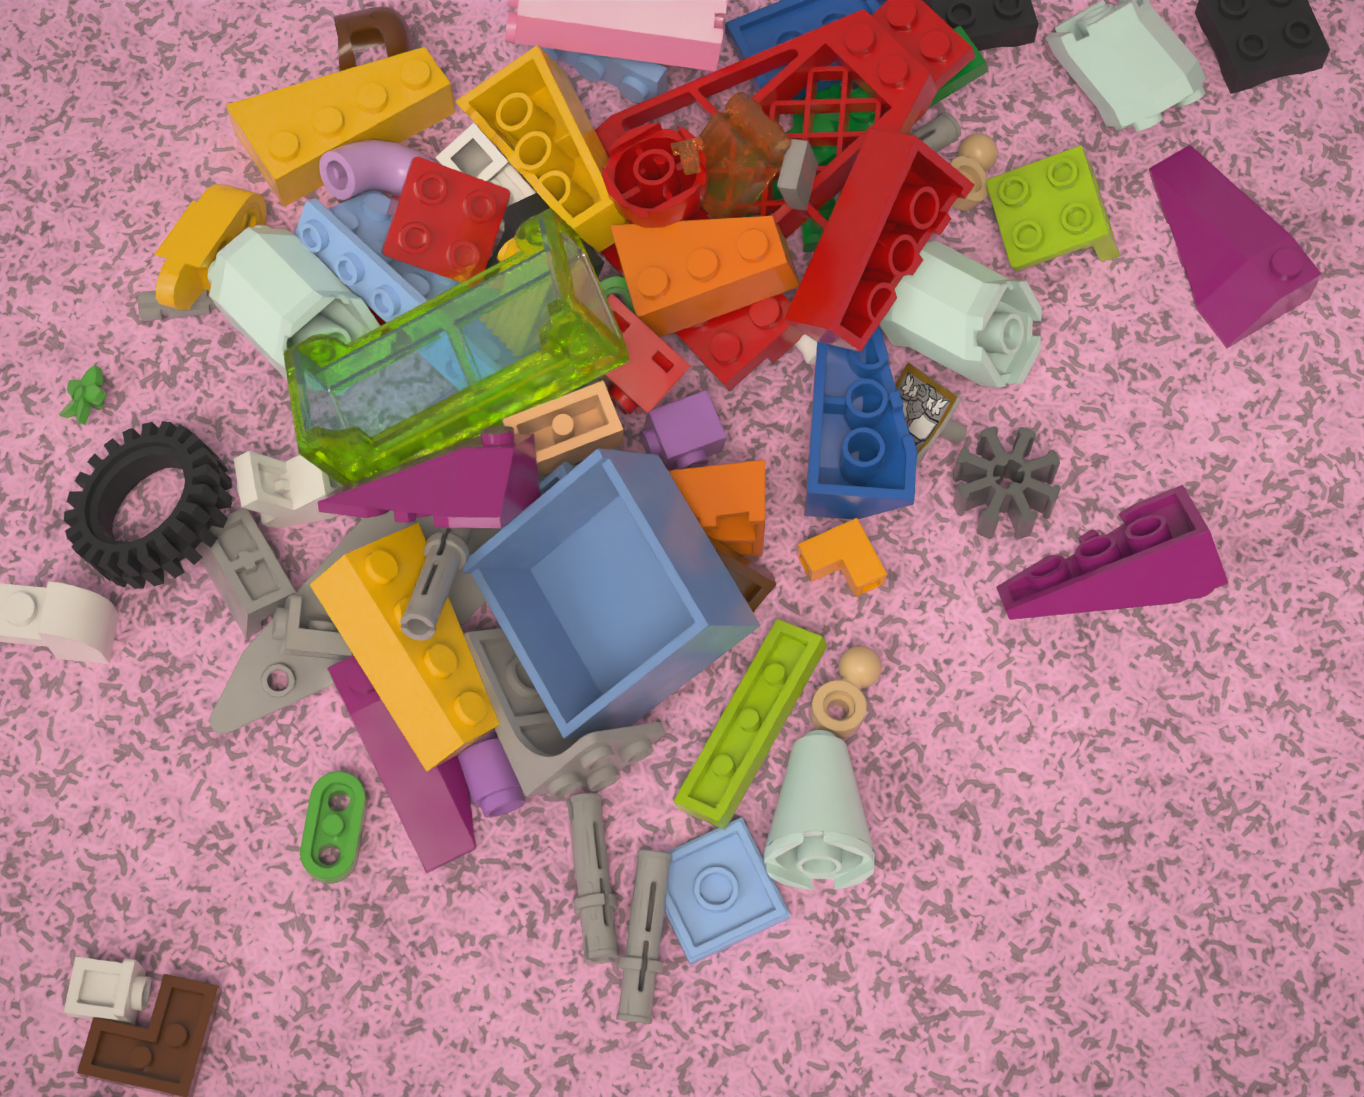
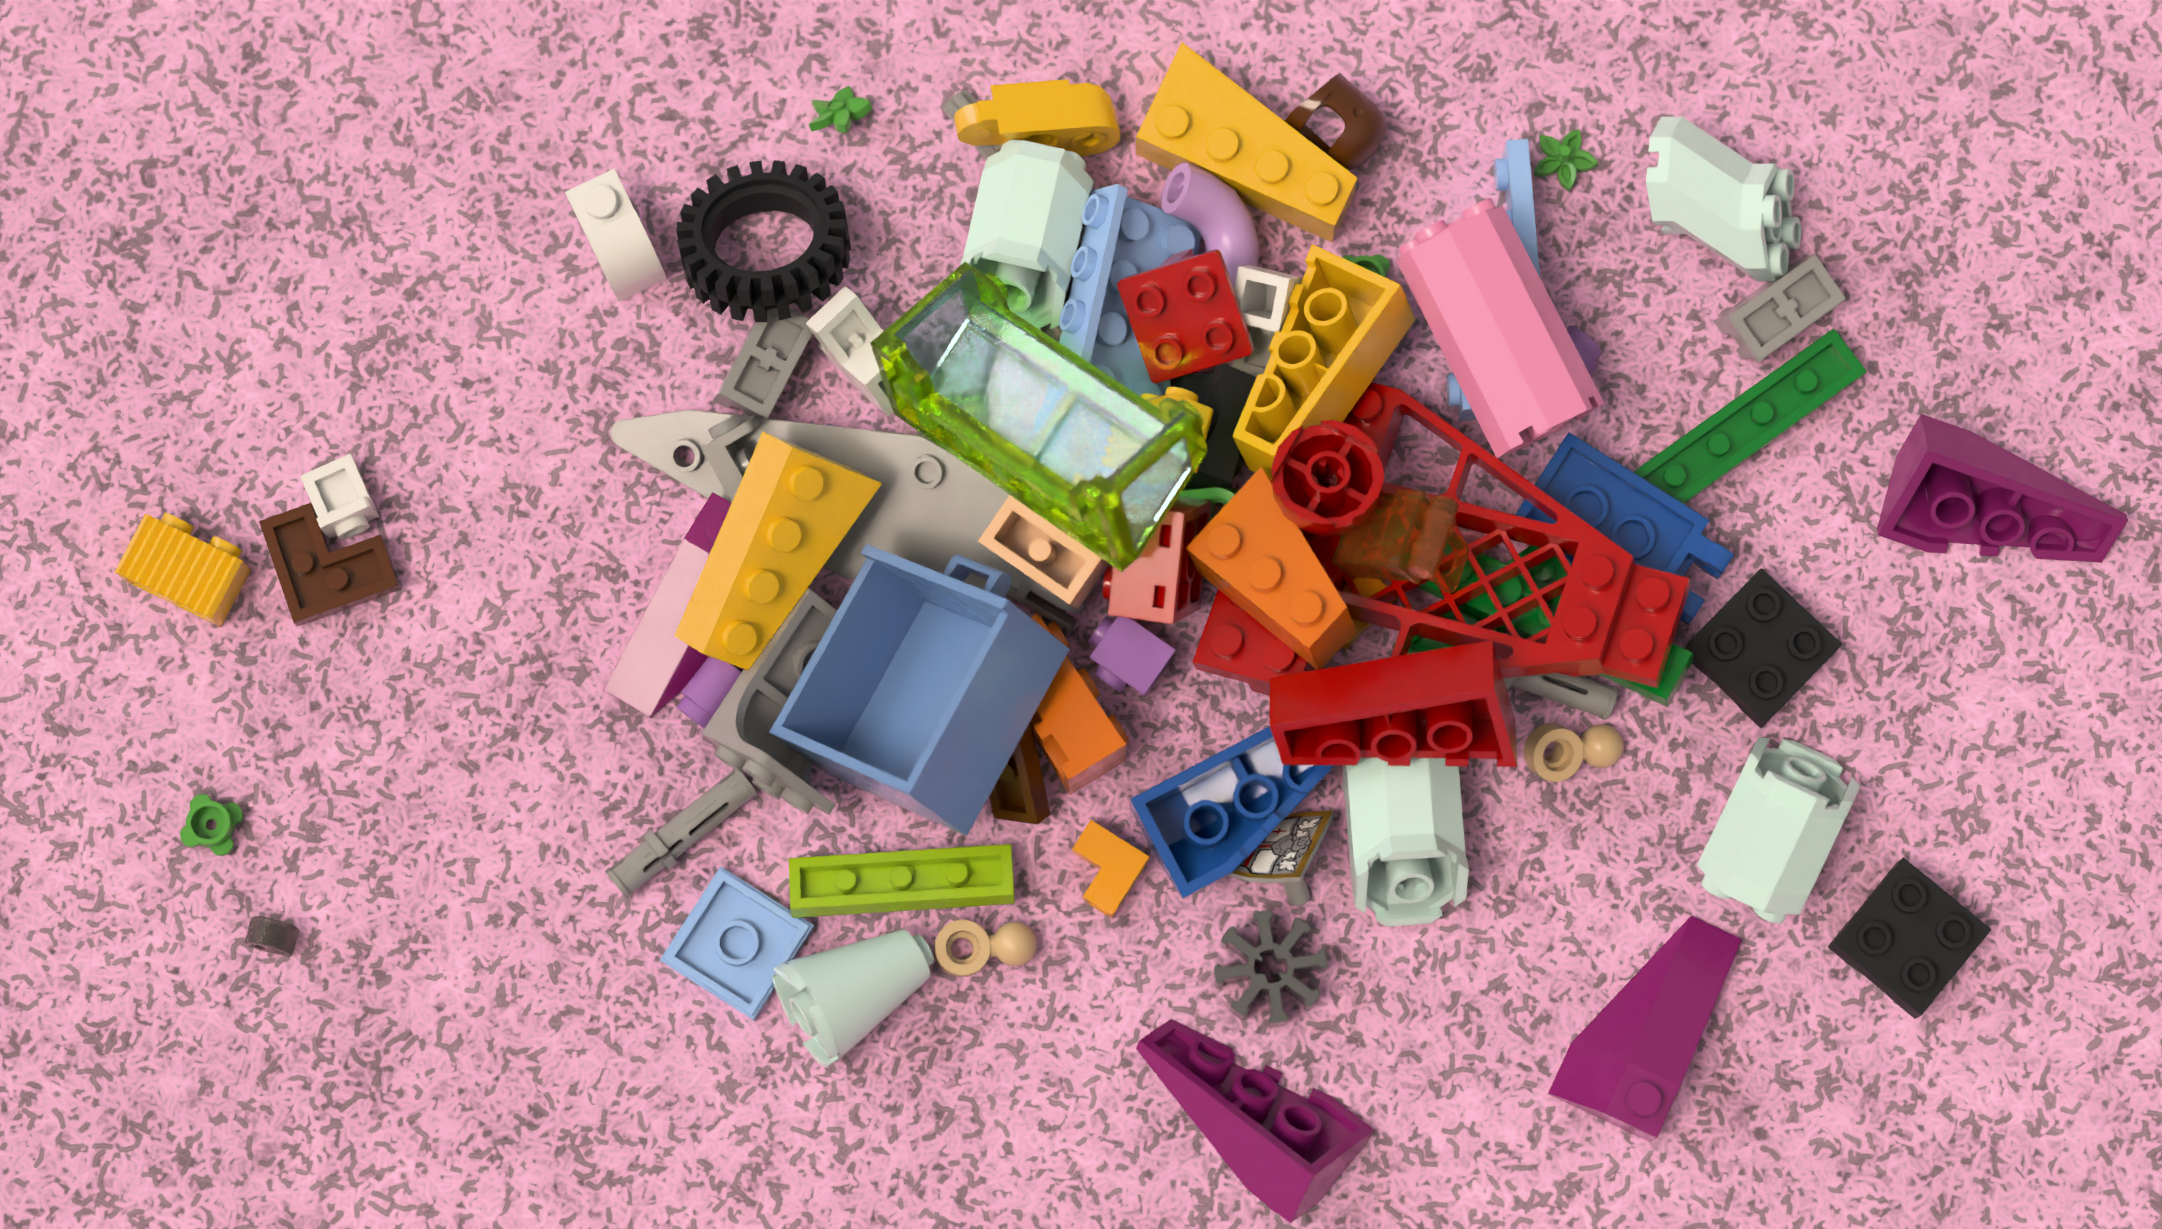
camera: 60 degrees right, 10 degrees up
(333, 829) = (589, 584): bright green plate -> none
(444, 555) = (860, 527): light grey pin -> none
(461, 486) = (920, 498): magenta wedge -> none
(636, 999) = (597, 937): light grey pin -> none
(689, 154) = (1353, 496): clear orange piece -> none
(798, 174) = (1420, 601): light grey tile -> none
(1051, 210) = (1576, 853): lime bracket -> none

